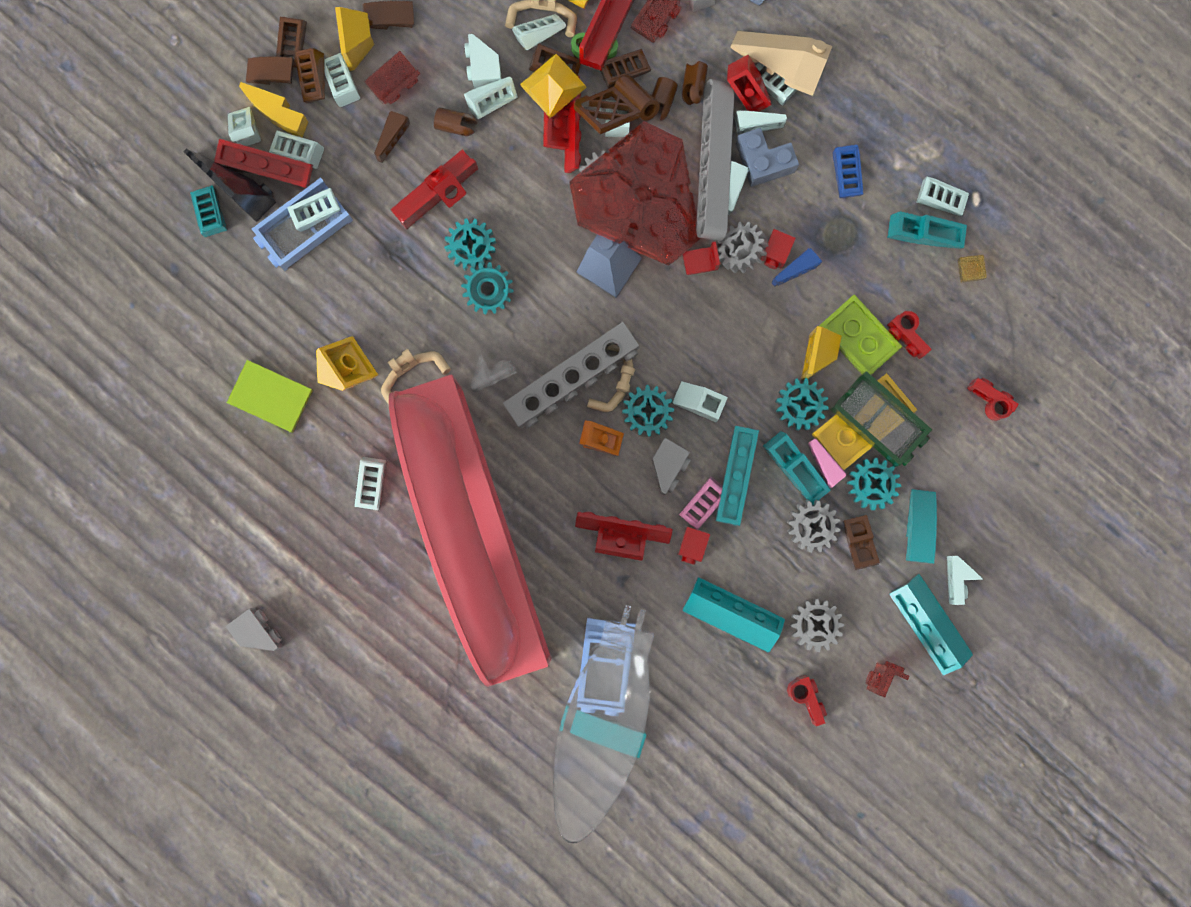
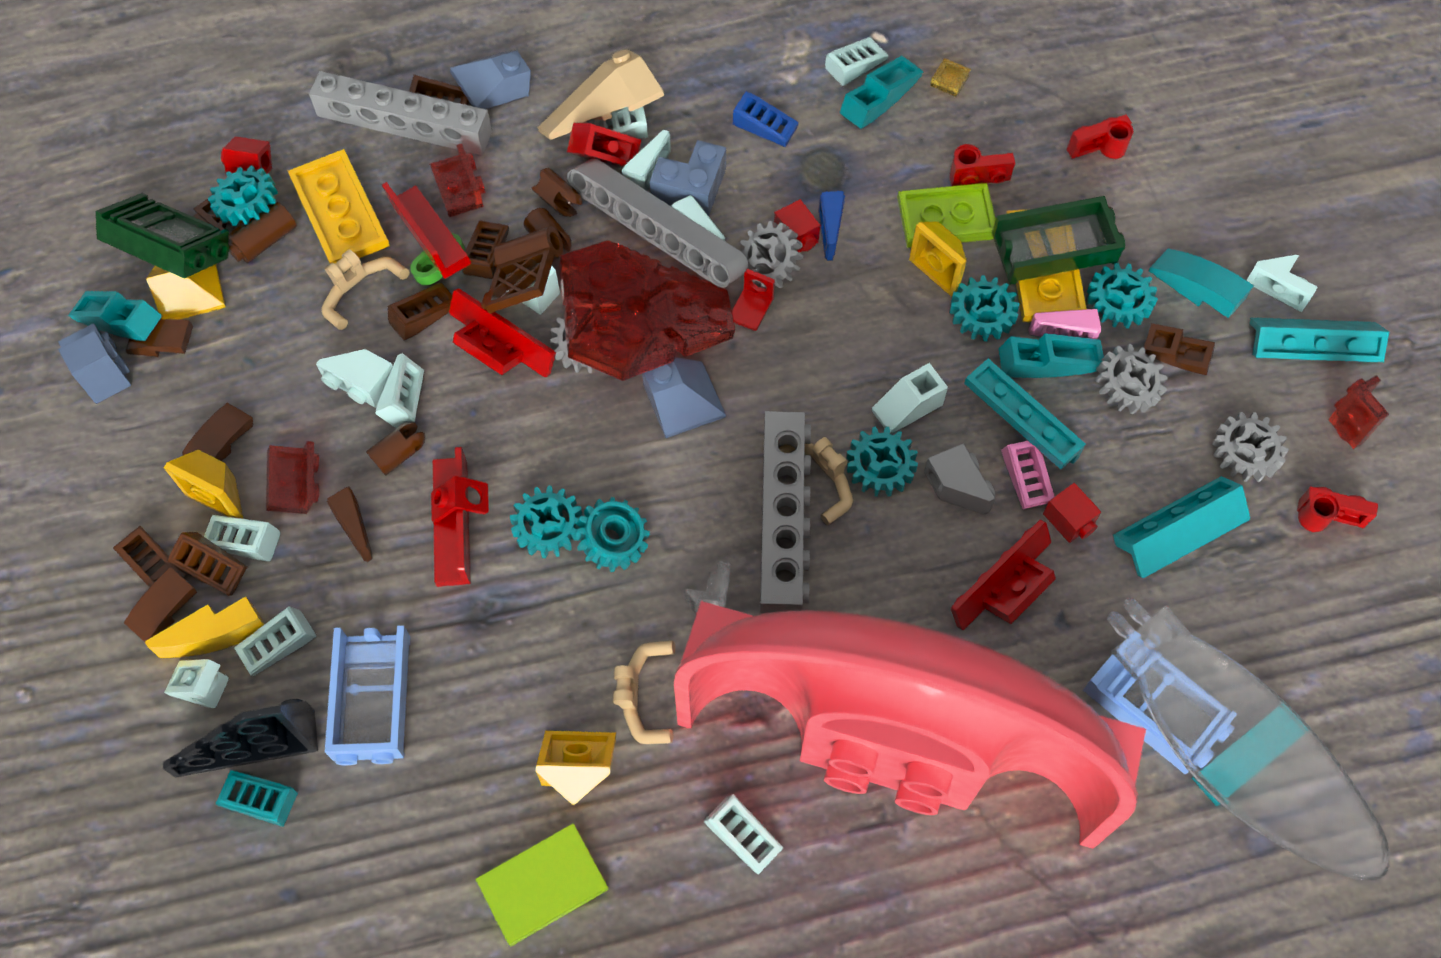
camera: 55 degrees left, 20 degrees down
(263, 163) = (264, 679): red panel -> none
(302, 225) = (348, 671): light aqua slope -> none
(538, 30) = (373, 301): light aqua slope -> none
(553, 85) = (446, 318): yellow slope -> none
(601, 438) = (877, 531): orange slope -> none

